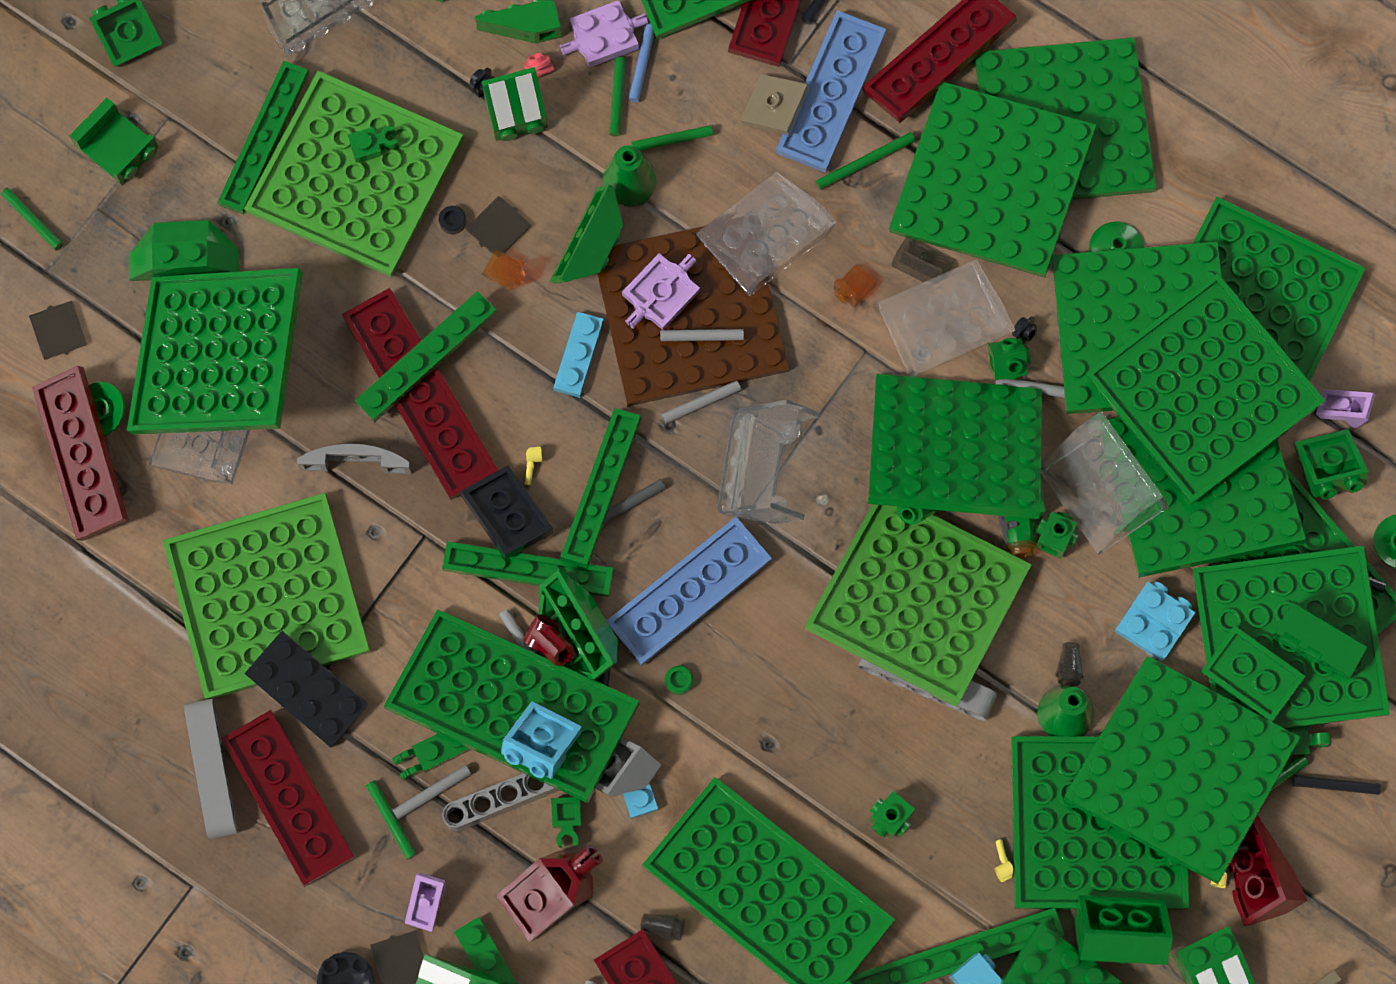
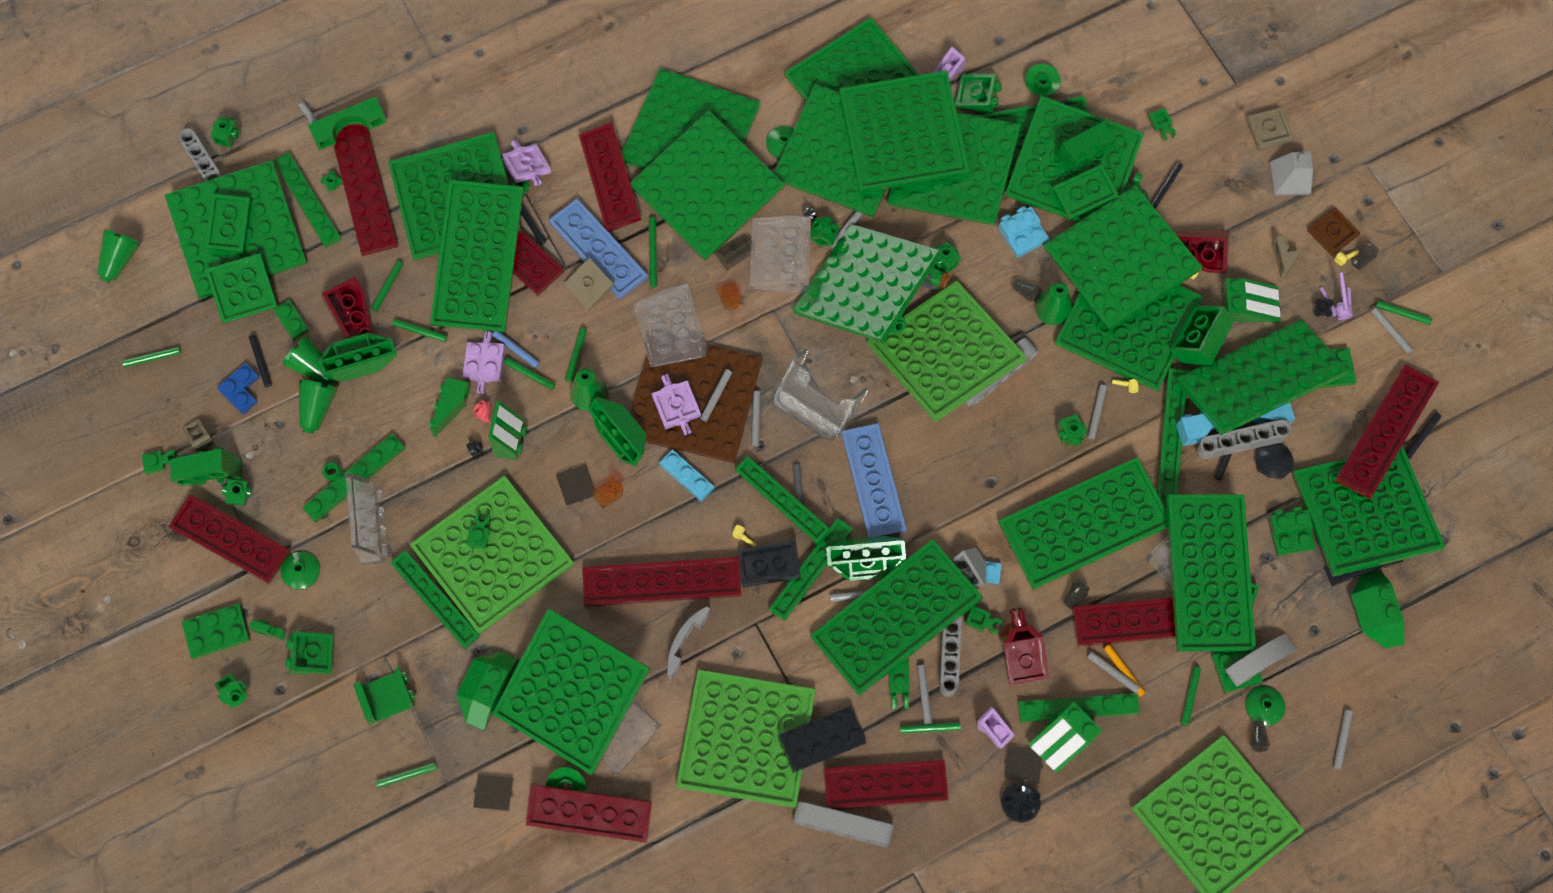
camera: 65 degrees left, 5 degrees down
(425, 356) = (641, 565): green plate -> none
(452, 220) = (556, 510): black tile -> none
(540, 740) = (933, 605): medium azure plate -> none
(545, 638) = (860, 578): dark red piece -> none
(678, 680) = (926, 514): green tile -> none
(942, 839) = (1097, 411): none -> light grey bar
(1102, 484) = (931, 214): clear slope -> none

